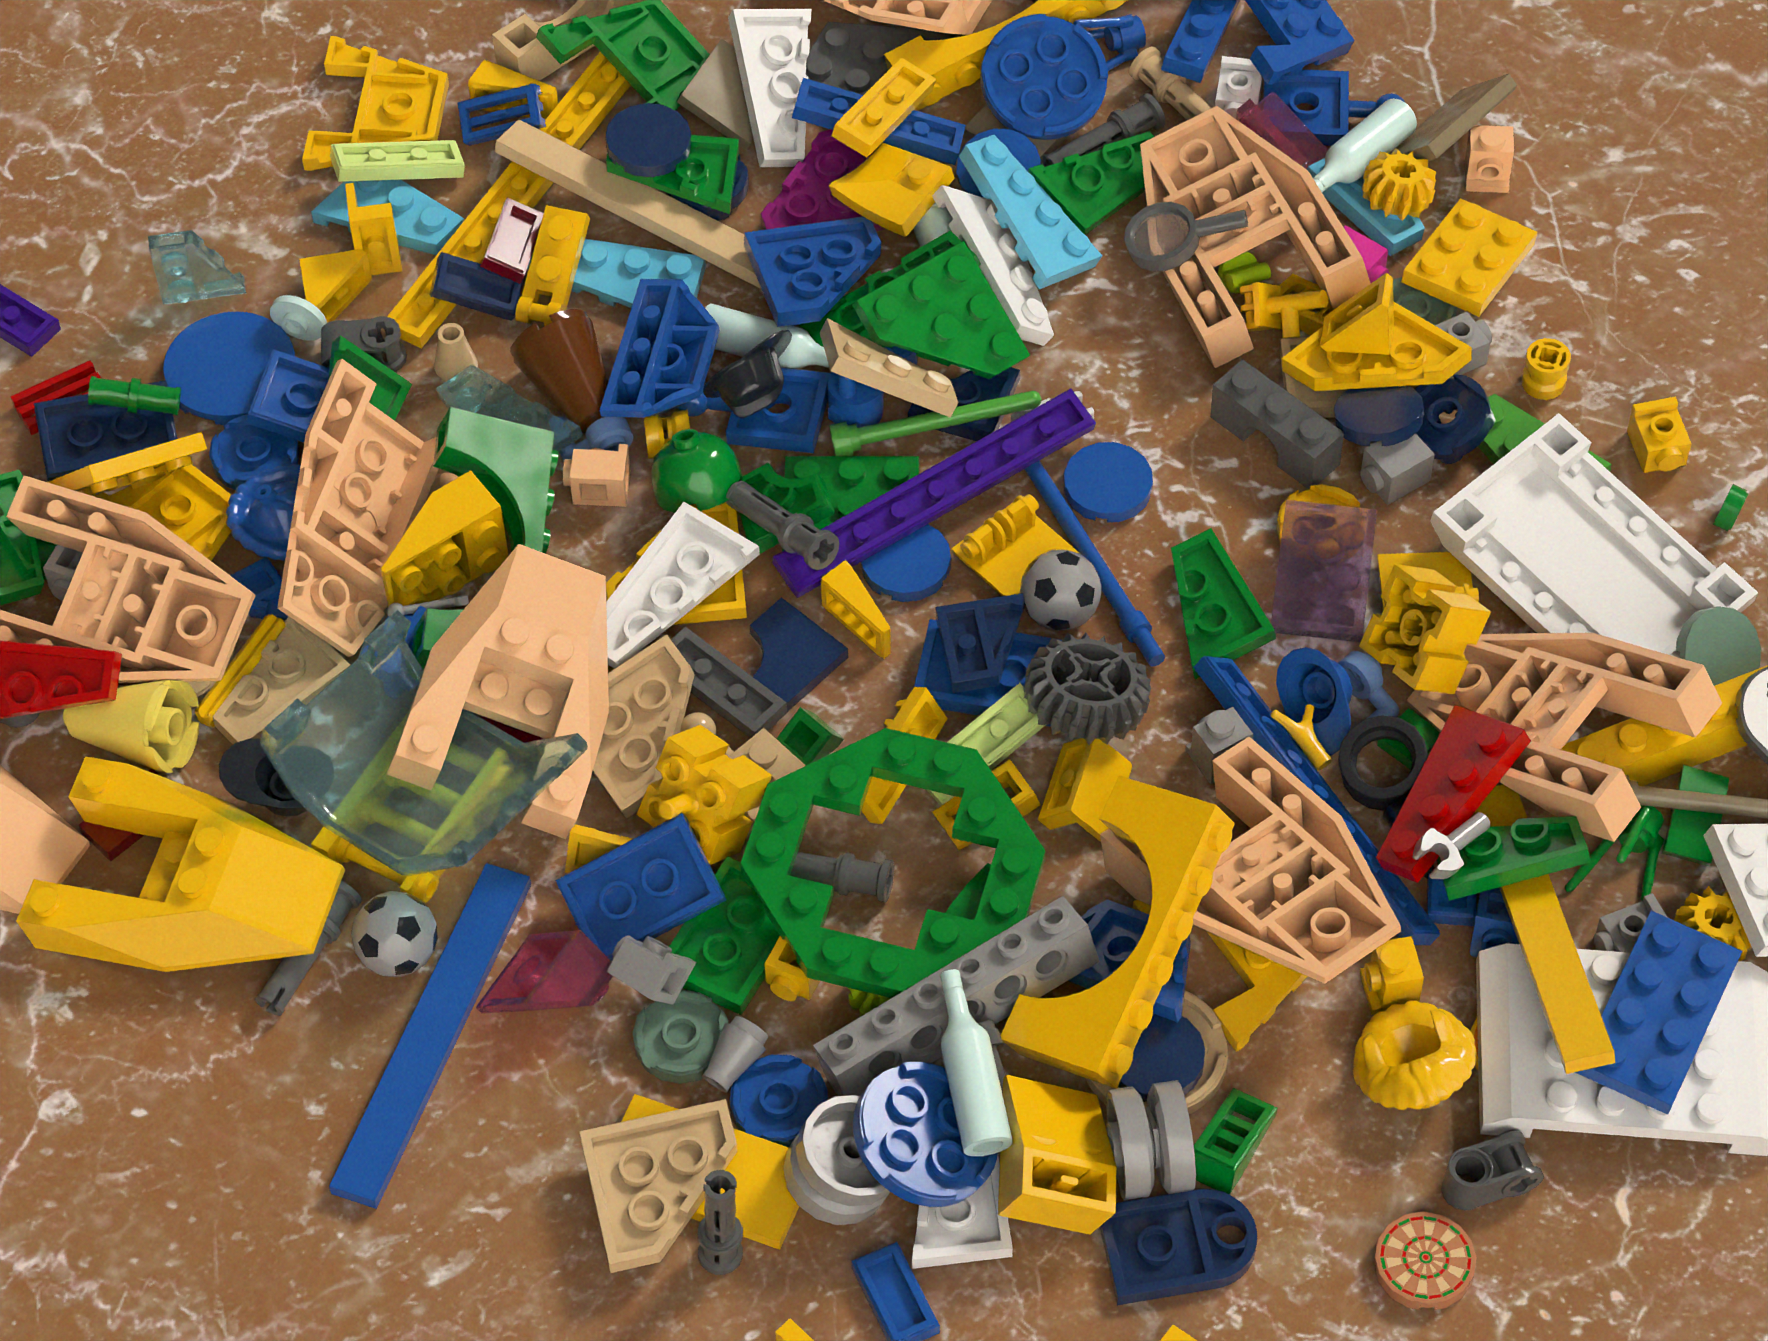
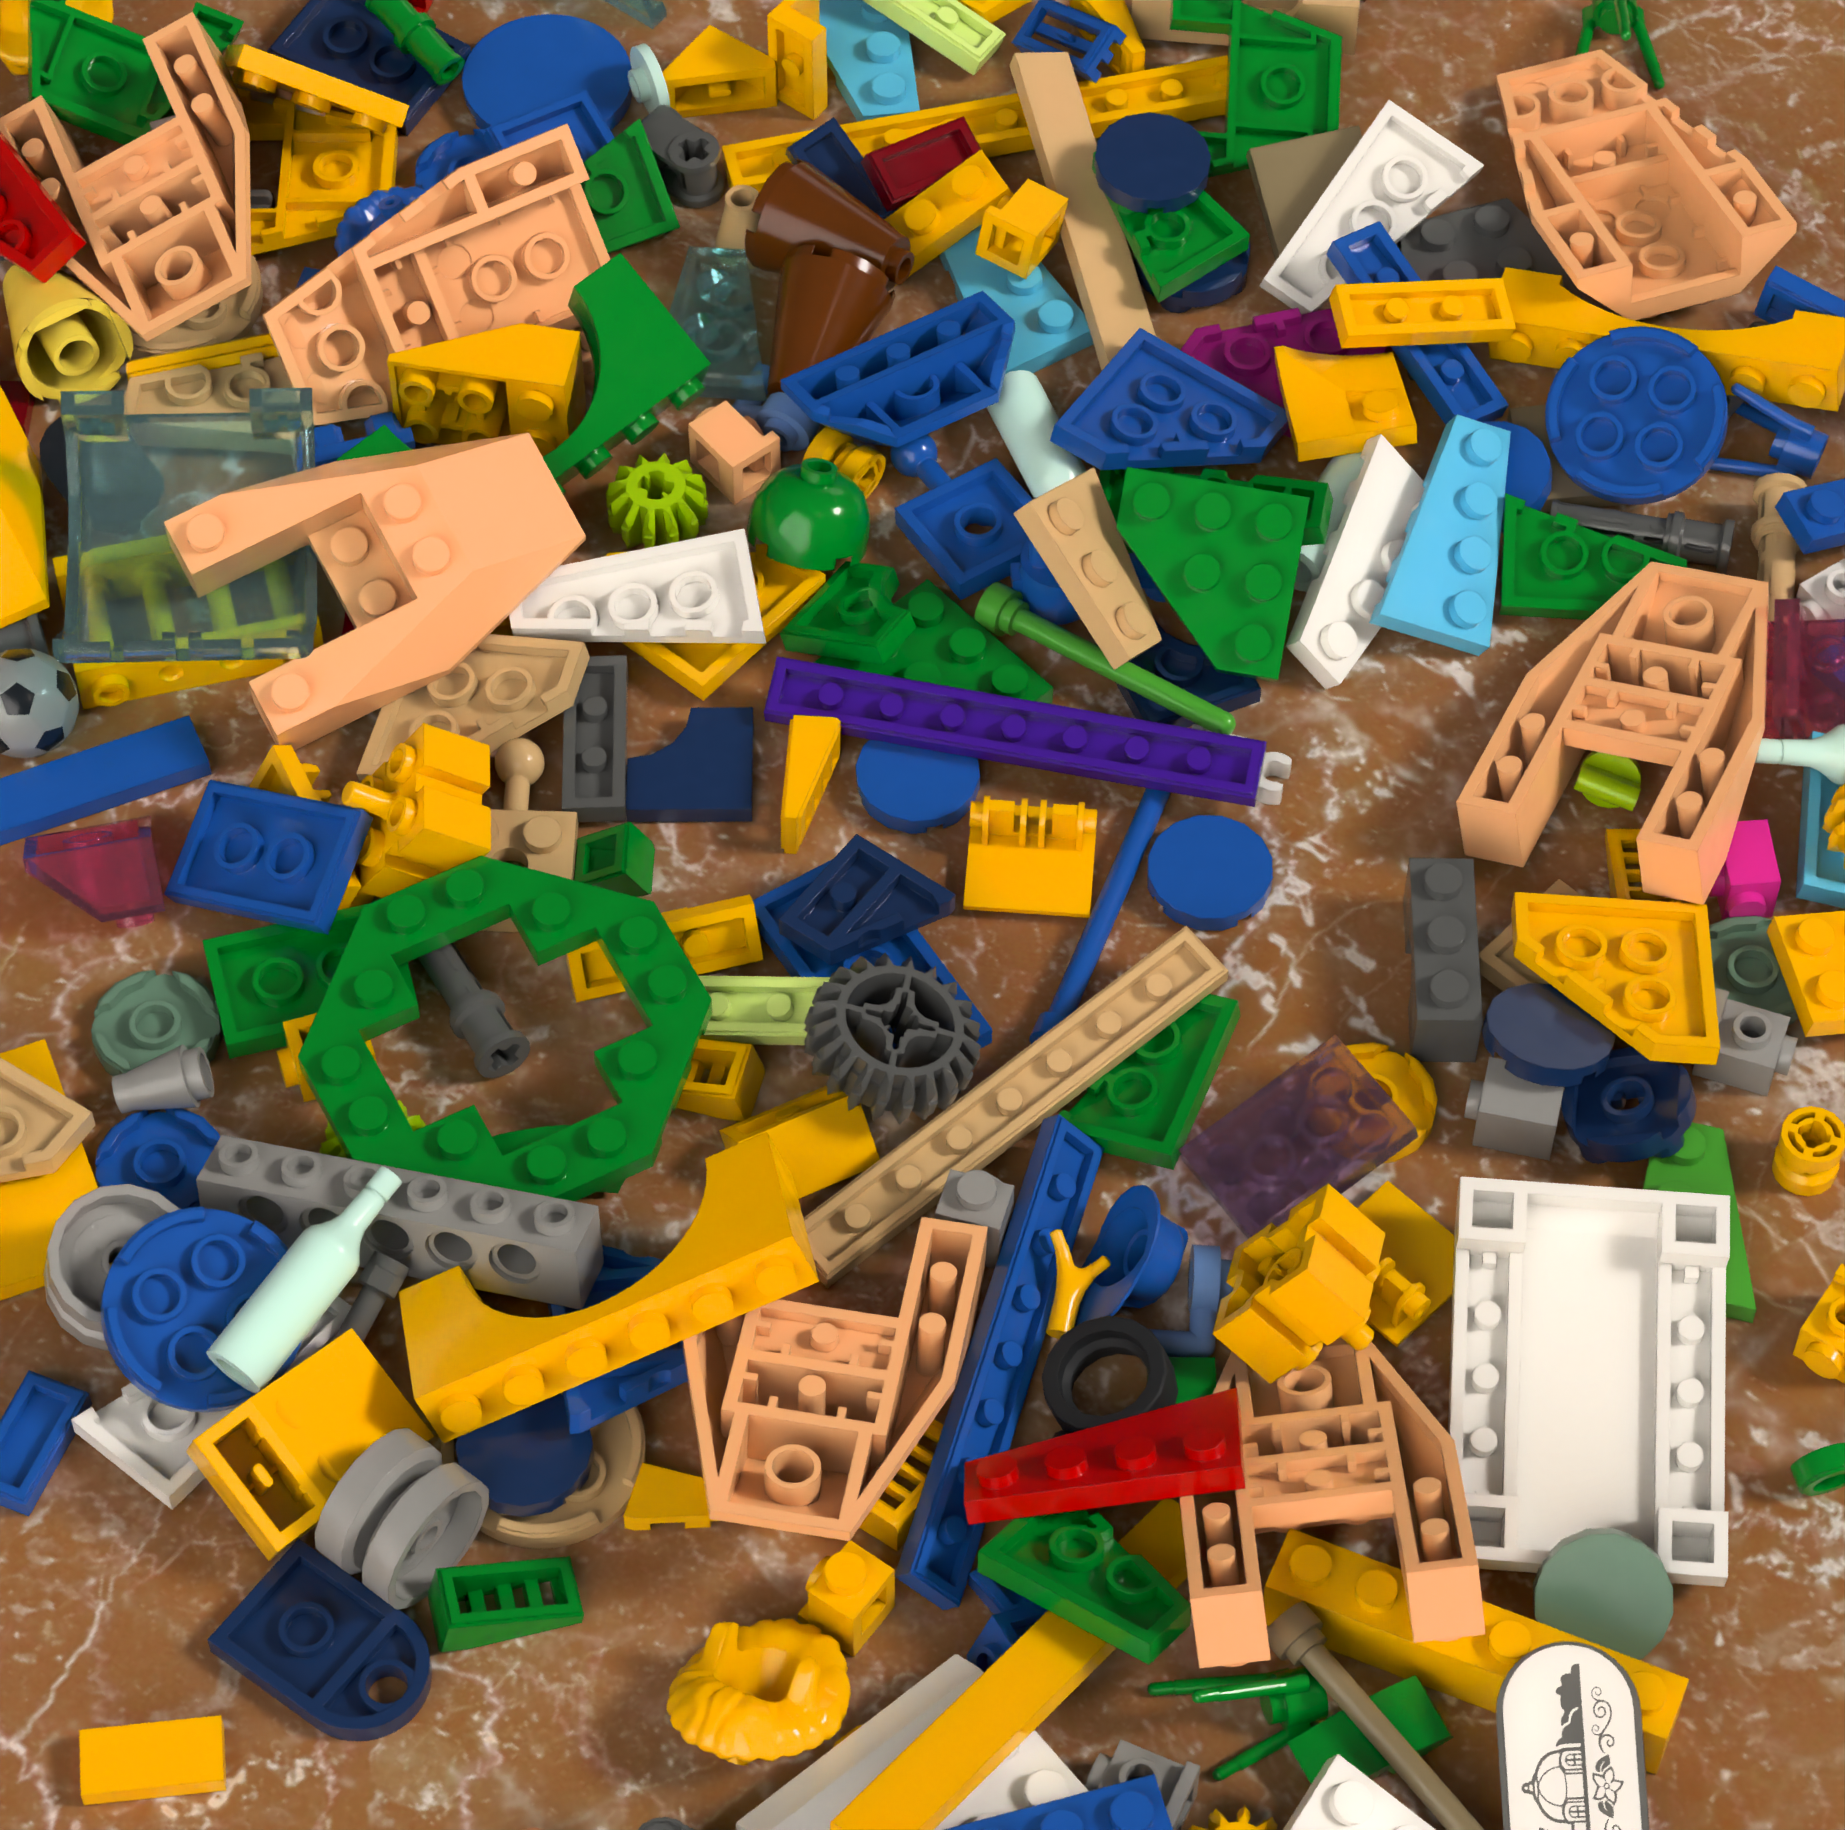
camera: 45 degrees right, 0 degrees up
(437, 604) = (385, 414): light grey hinge -> none
(505, 310) = (809, 208): none -> reddish brown cone
(596, 536) = (656, 502): none -> lime gear
(616, 230) = (1022, 228): none -> yellow brick
(650, 968) = (179, 934): light grey brick -> none
(754, 379) = (966, 468): black piece -> none
(794, 531) = (817, 590): dark grey pin -> none
(1060, 590) = (1007, 927): light grey piece -> none
(1168, 234) = (1552, 670): dark grey piece -> none
(1168, 650) = (1011, 1102): none -> tan tile
(1269, 309) = (1589, 842): yellow arm -> none
(1362, 321) = (1633, 925): yellow slope -> none
(1449, 846) = (1030, 1512): light grey bar -> none

